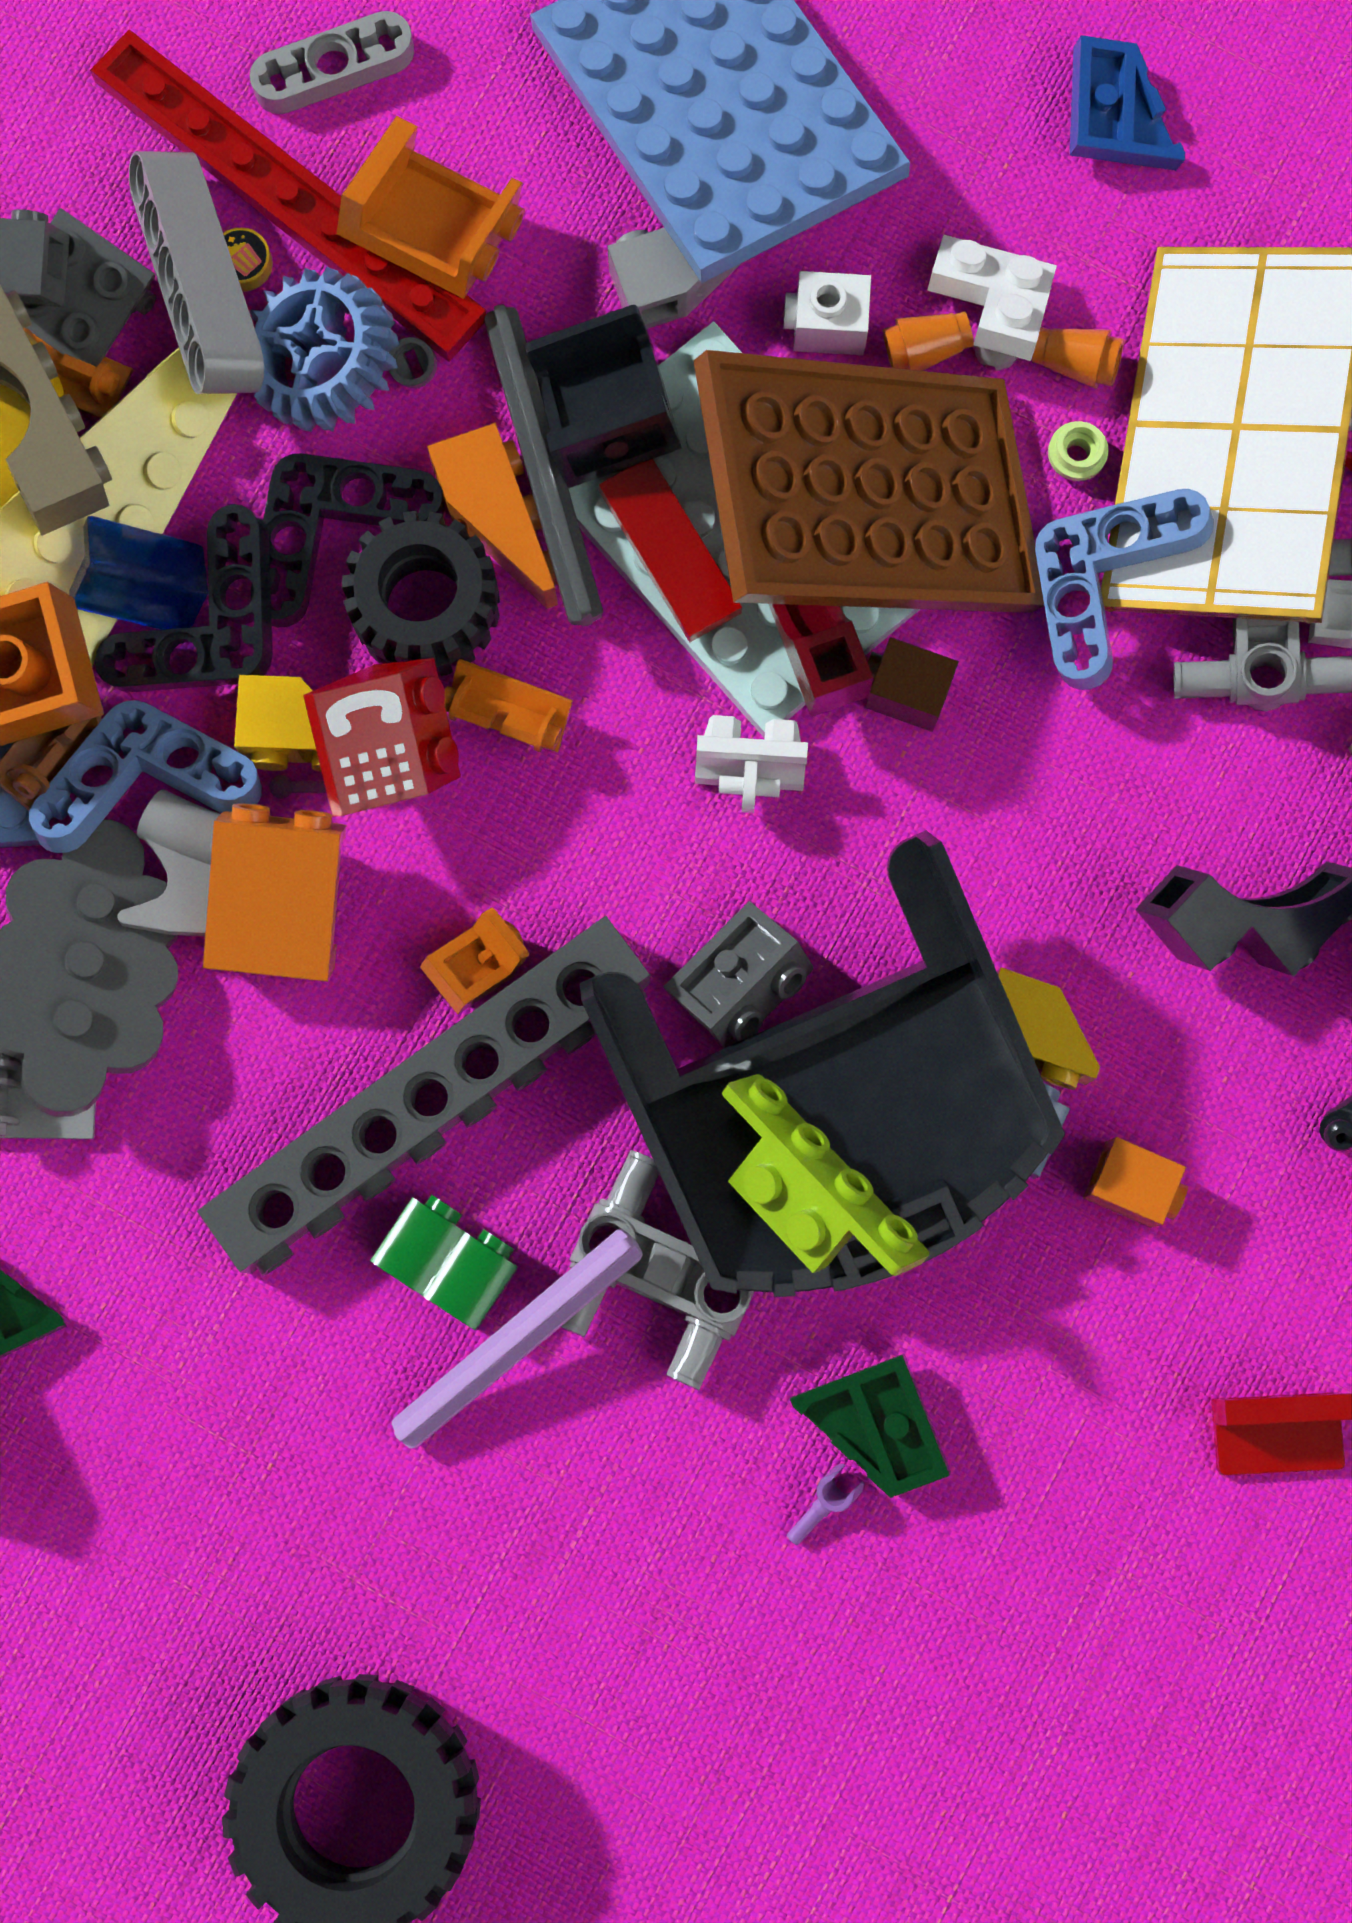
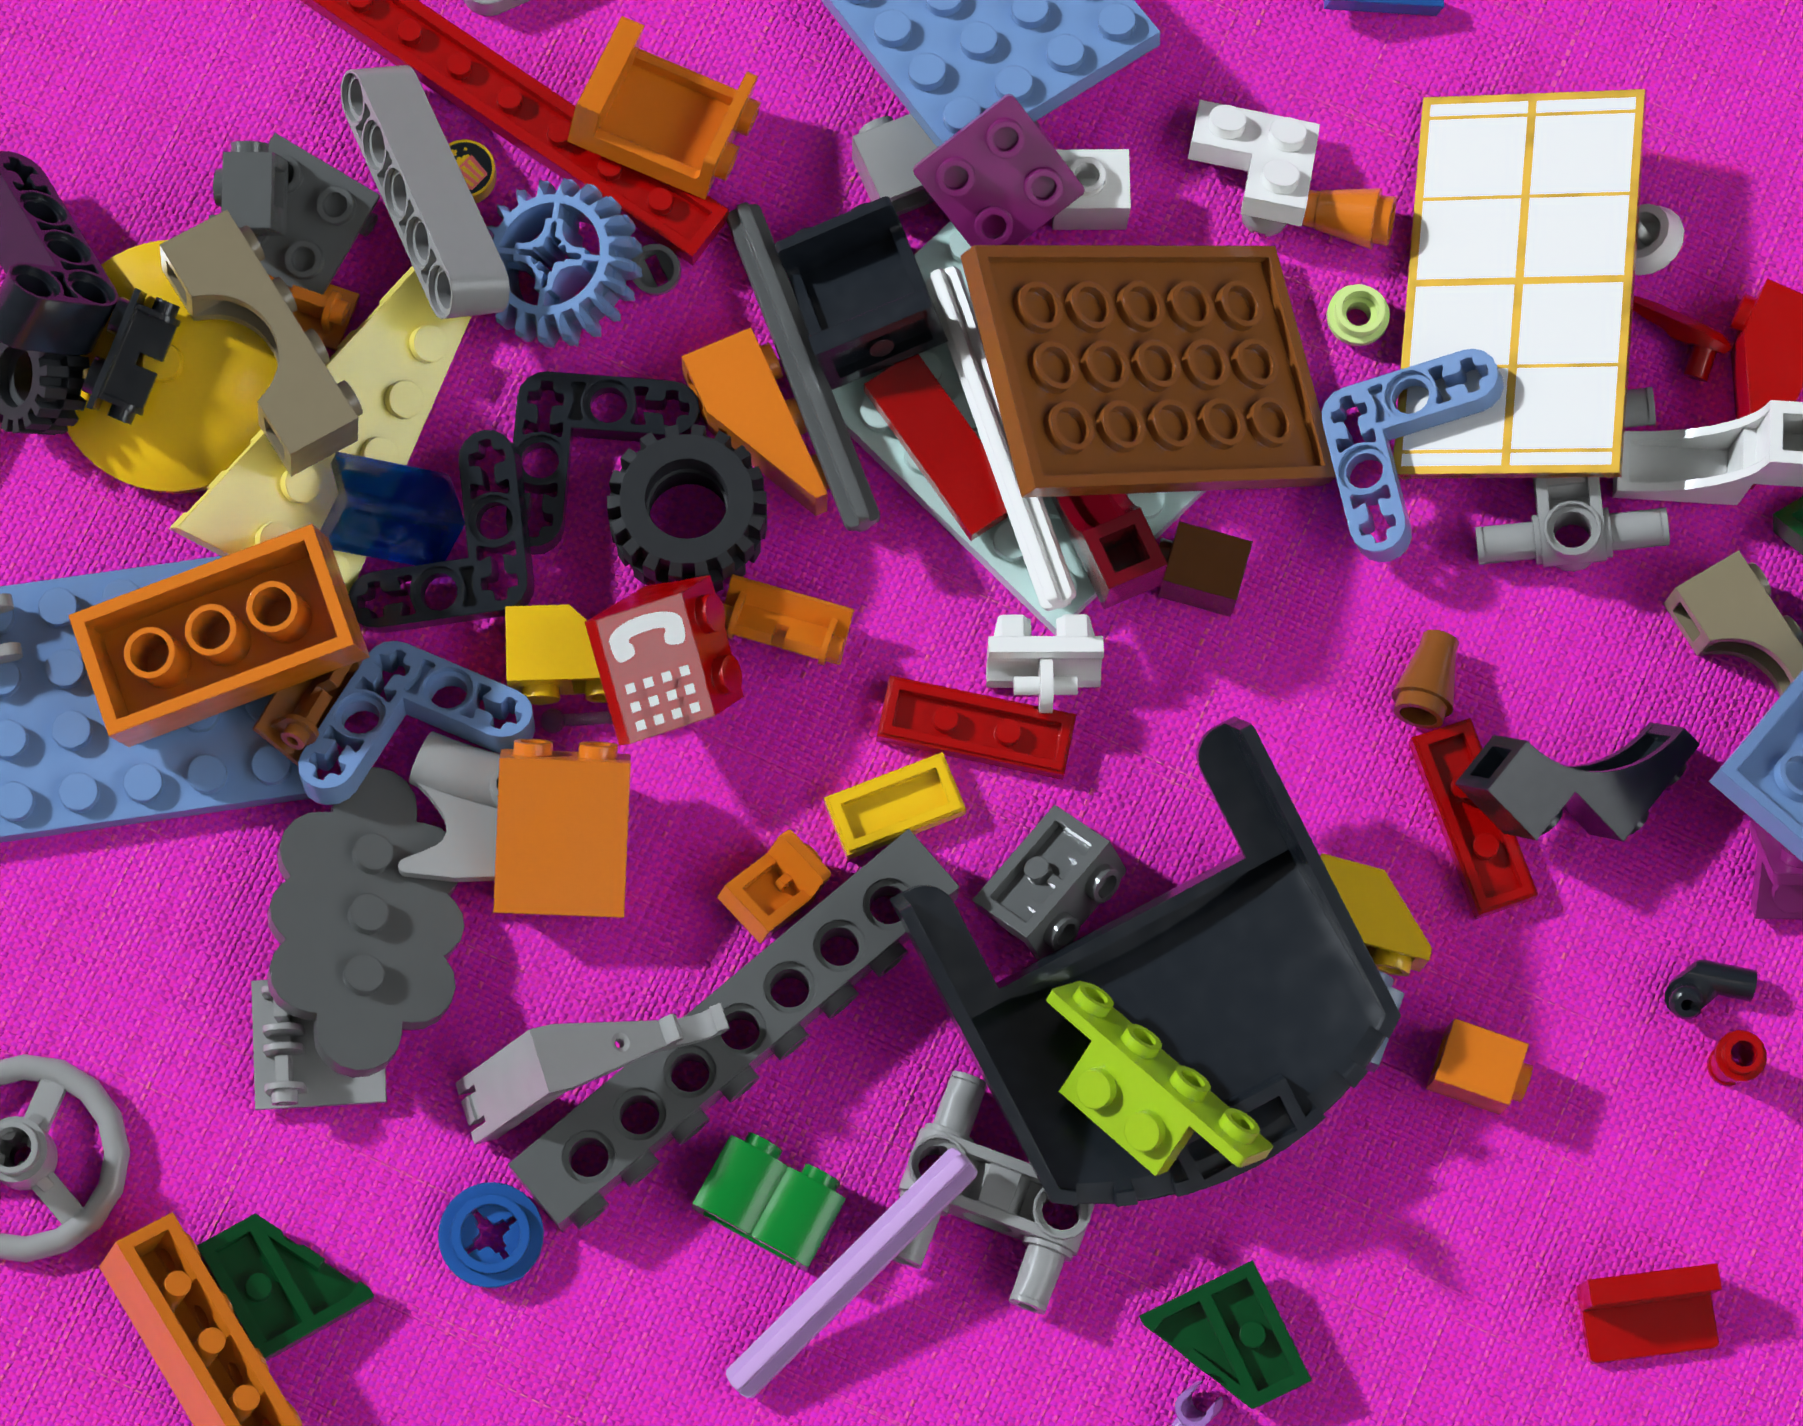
camera: 10 degrees left, 5 degrees down
(152, 1267) = (497, 1204): none -> blue gear
(249, 1117) = (564, 1057): none -> light grey hinge
(598, 888) = (890, 804): none -> yellow tile
(681, 821) = (976, 727): none -> red tile
(742, 619) = (1027, 515): none -> white axle
(743, 290) = (999, 176): none -> magenta bracket
(927, 340) = (1191, 211): orange cone -> none
(1116, 809) = (1427, 684): none -> dark orange cone
(1157, 981) = (1484, 857): none -> red tile

